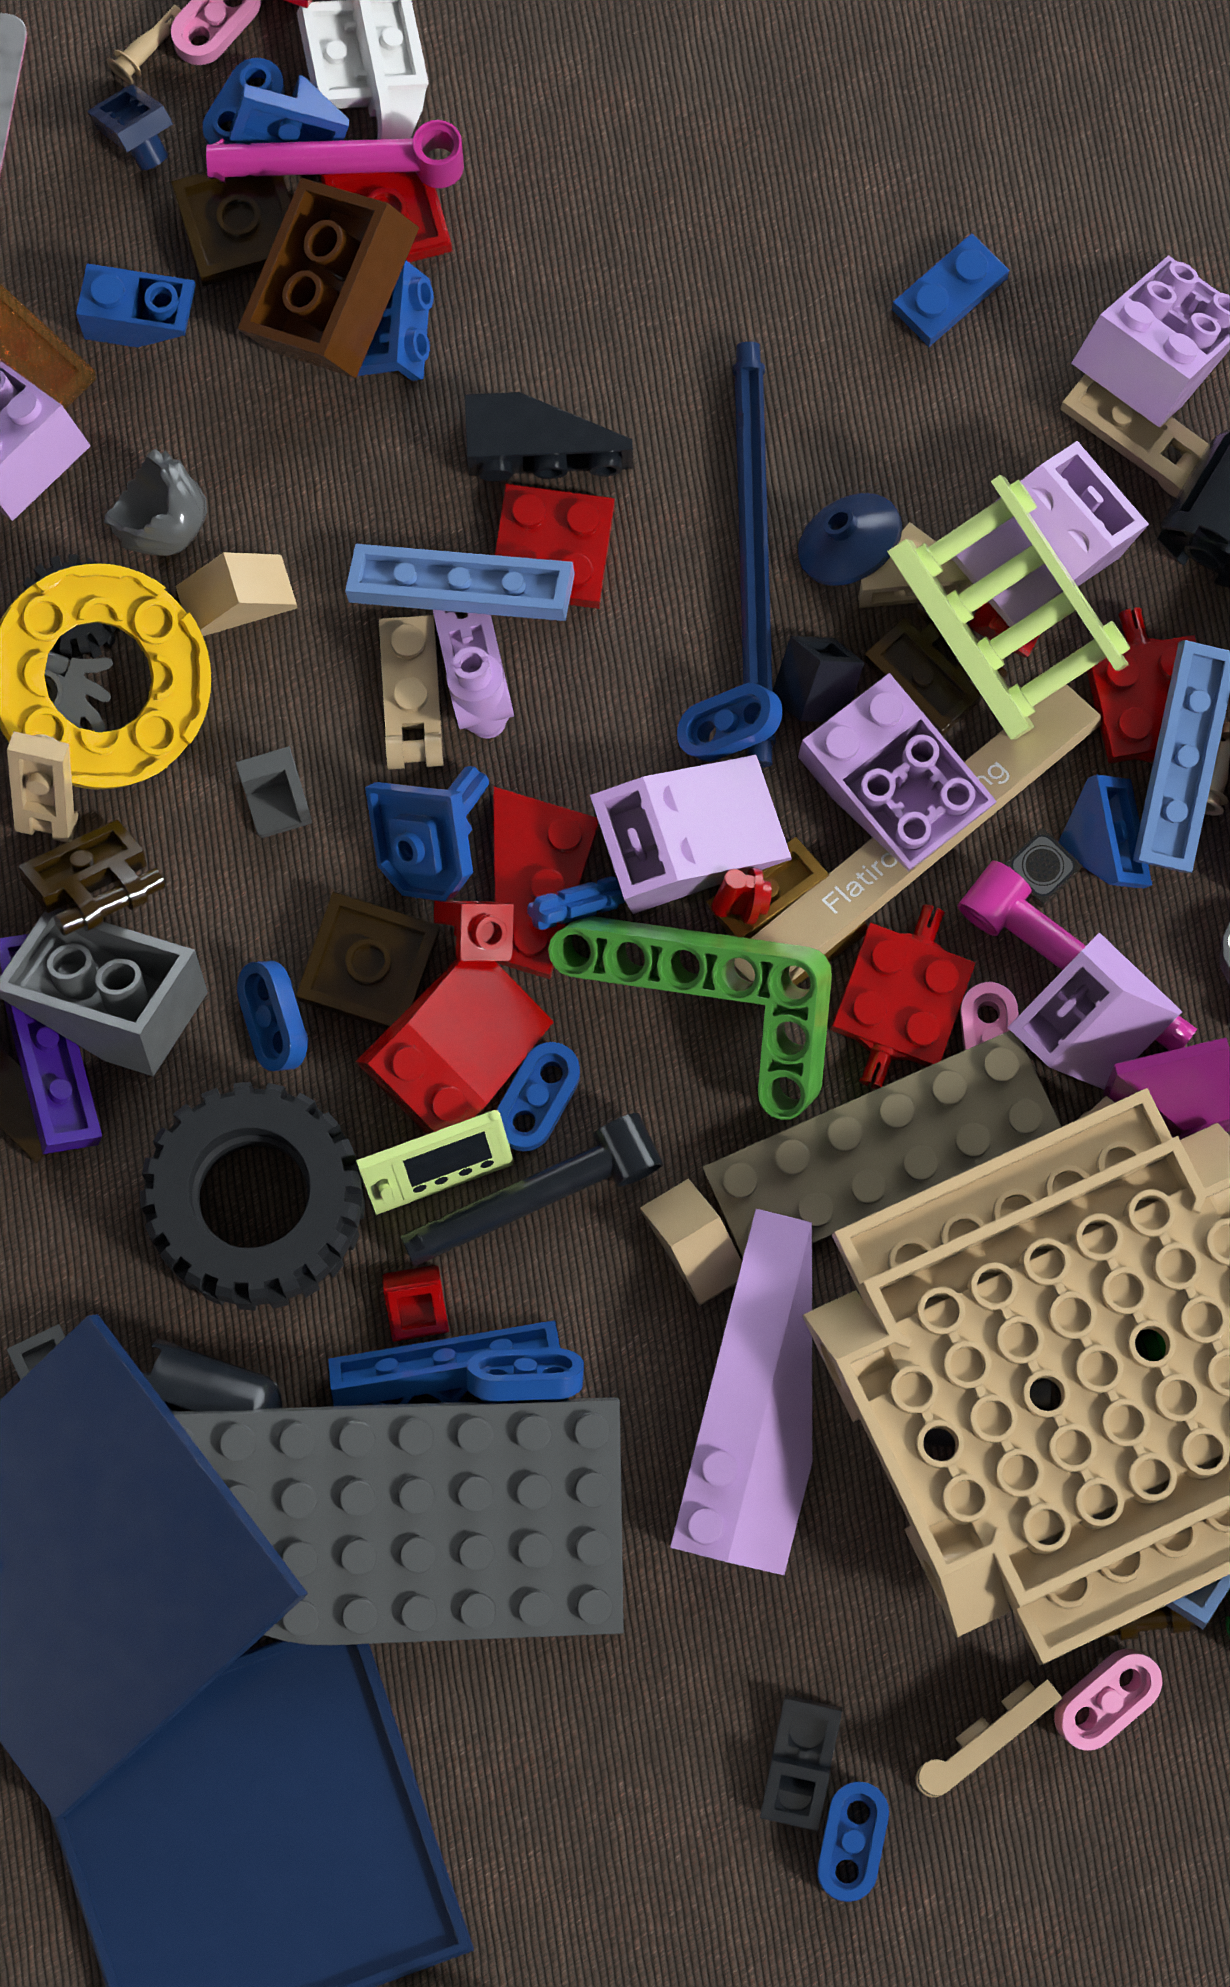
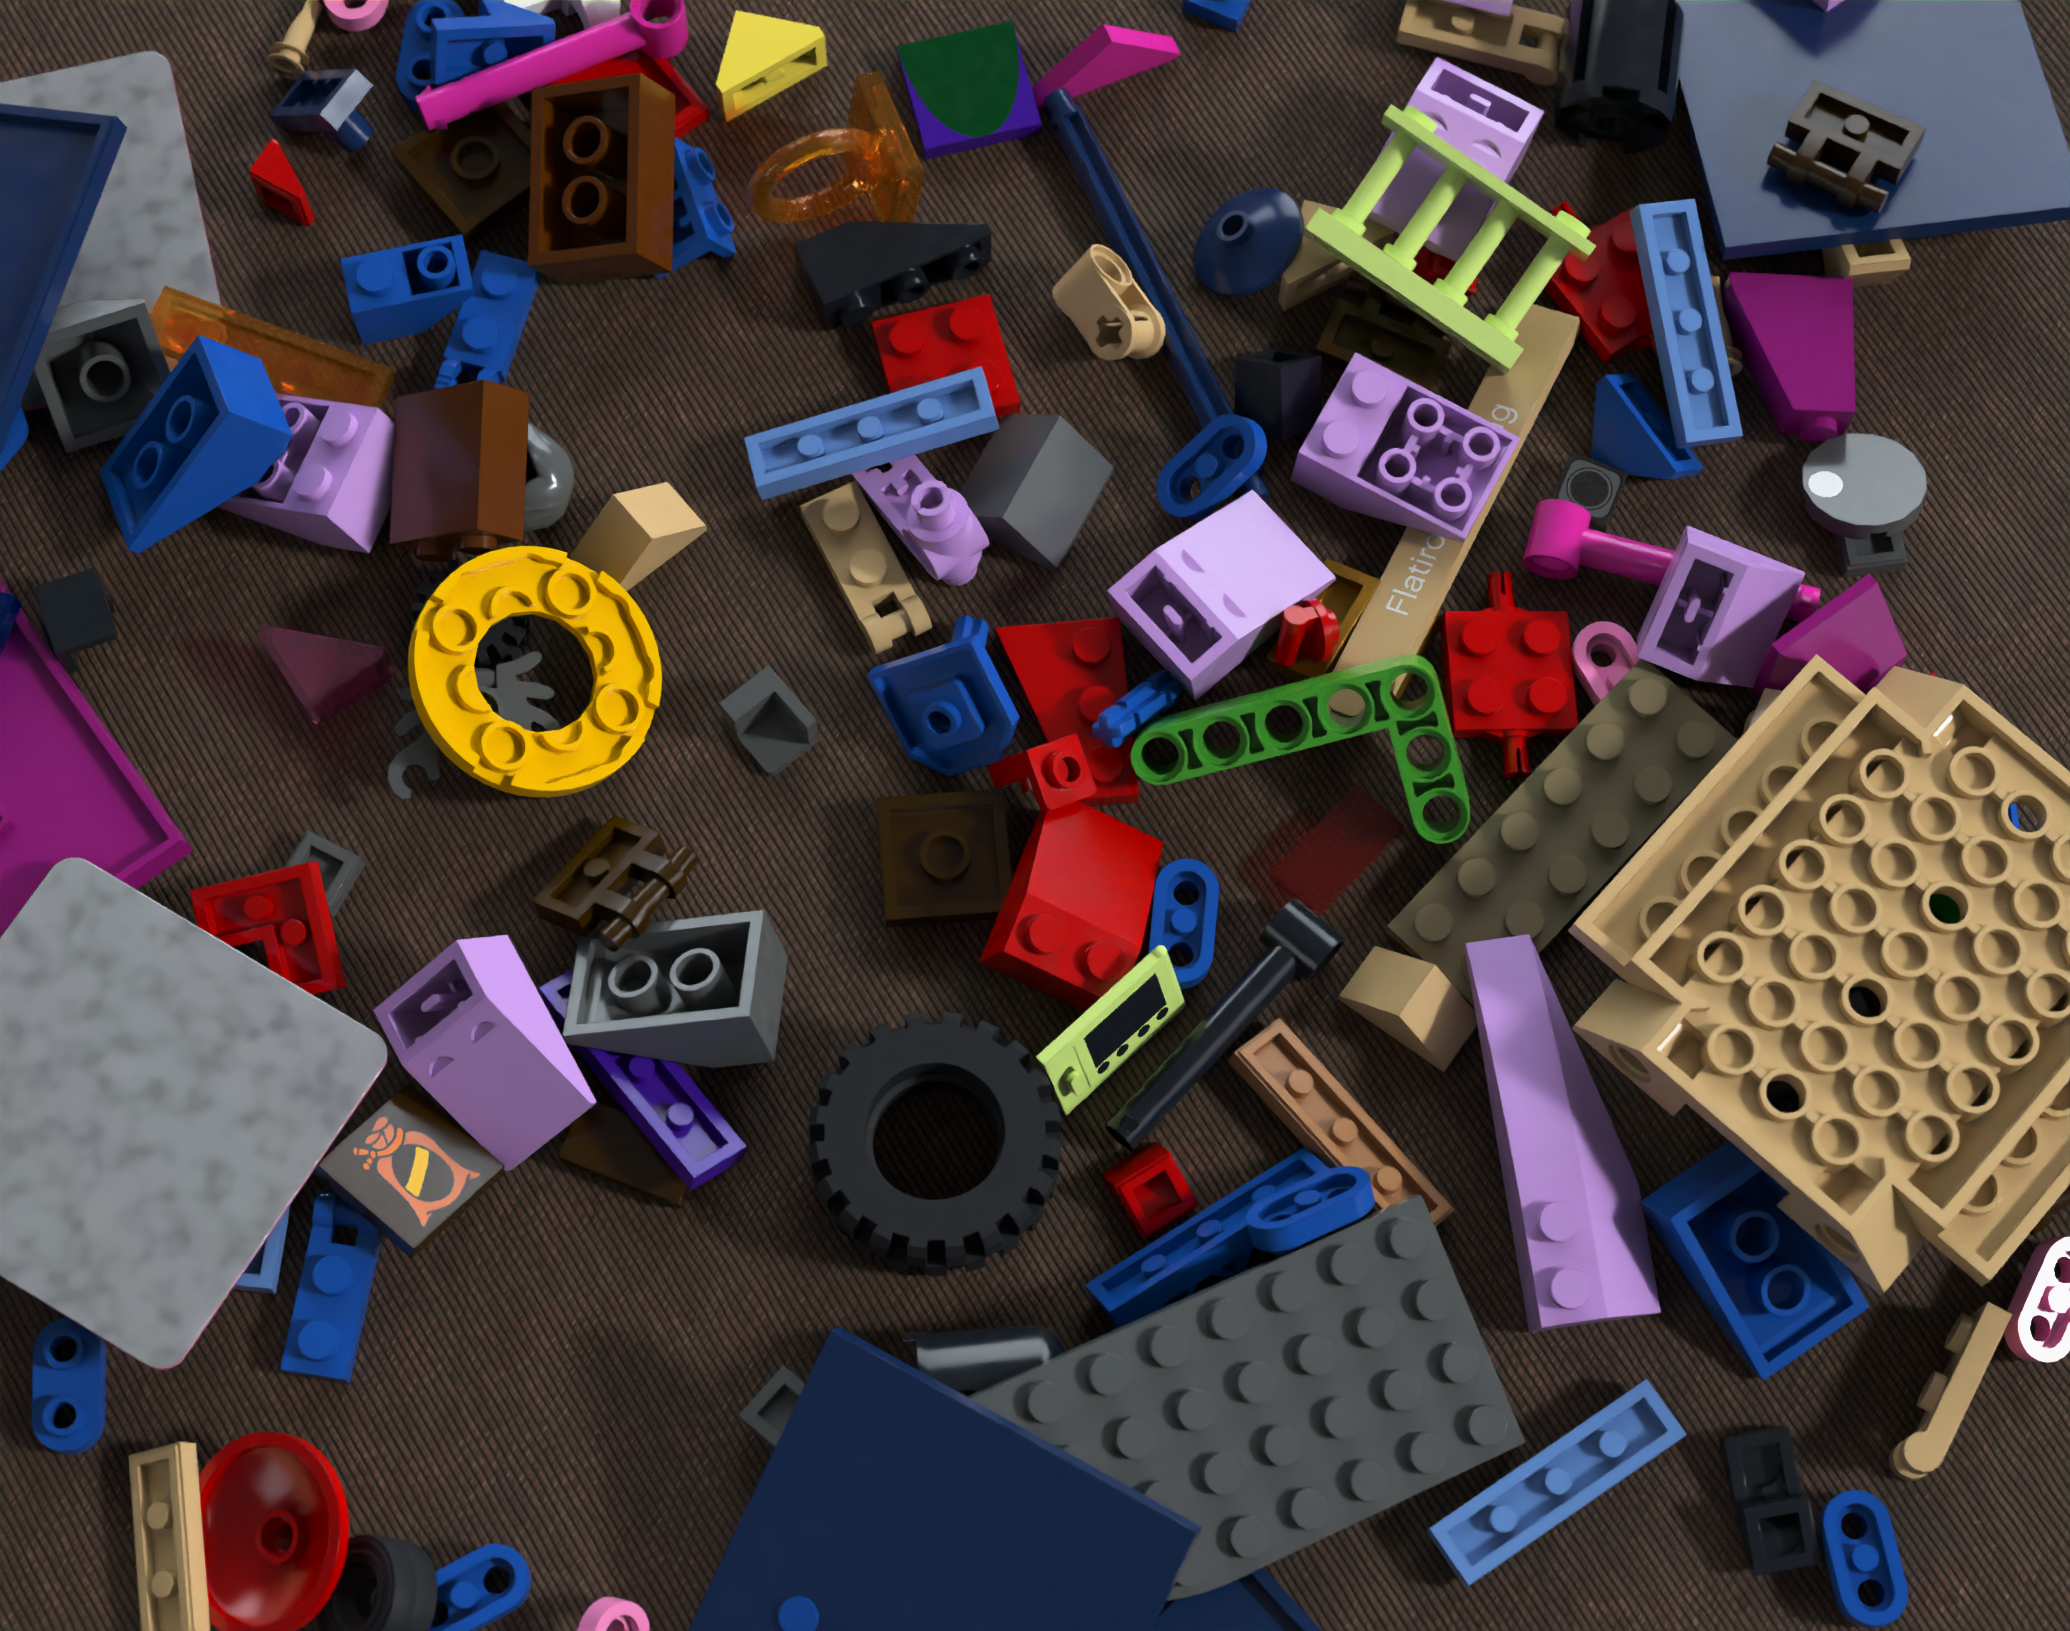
camera: 25 degrees left, 5 degrees down
(41, 786) = (526, 804): tan plate -> none
(69, 175) = (279, 185): none -> red slope
(107, 483) = (459, 470): none -> reddish brown brick
(187, 368) = (490, 320): none -> blue hinge
(272, 1015) = (870, 957): blue plate -> none
(513, 221) = (764, 59): none -> light yellow slope
(563, 342) = (874, 154): none -> clear orange tile
(578, 680) = (1036, 486): none -> dark grey slope
(587, 1312) = (1329, 1118): none -> medium nougat tile
(633, 1676) = (1556, 1483): none -> medium blue plate
(677, 311) = (969, 89): none -> dark green tile
(692, 1088) = (1337, 851): none -> clear red tile
(704, 544) = (1109, 307): none -> tan piece
(803, 330) = (1105, 58): none -> dark pink tile
(870, 1569) = (1750, 1261): none -> blue slope

